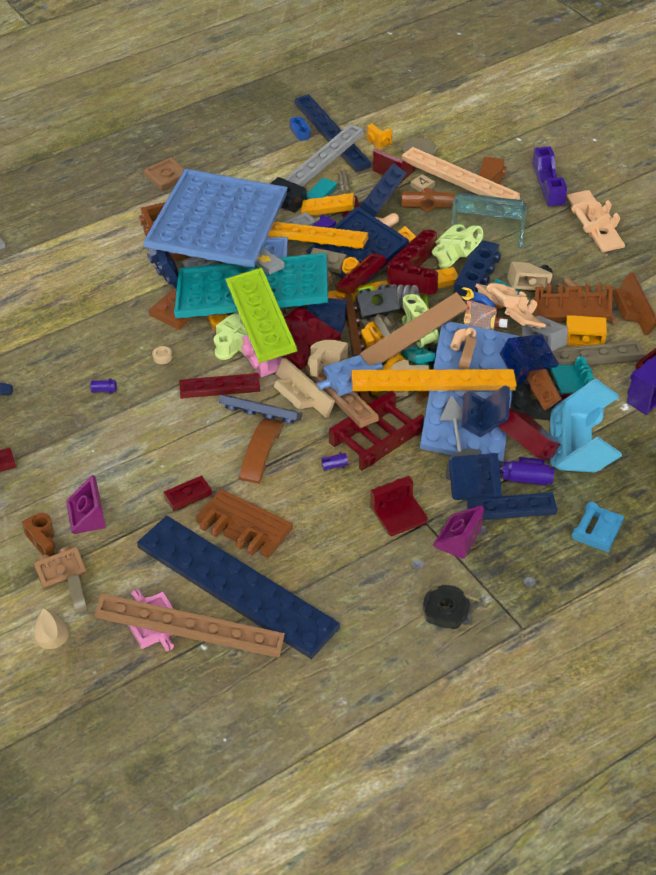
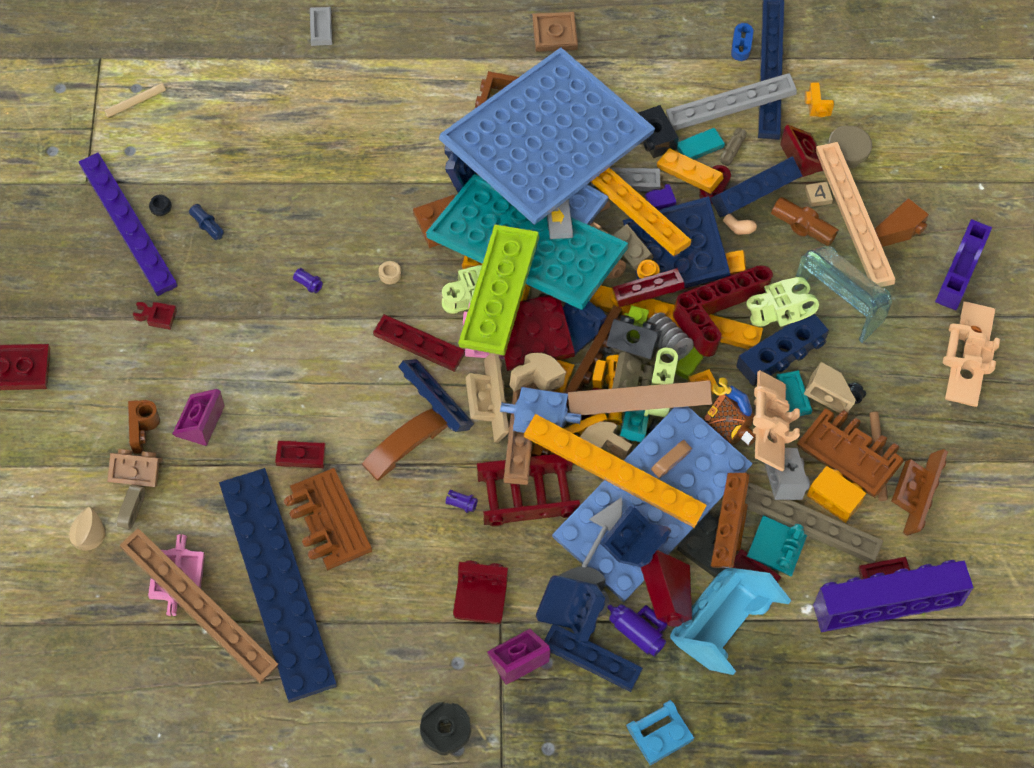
camera: 30 degrees right, 15 degrees up
(460, 337) = (678, 434): light nougat arm -> none
(527, 355) = (734, 499): clear blue bracket -> none

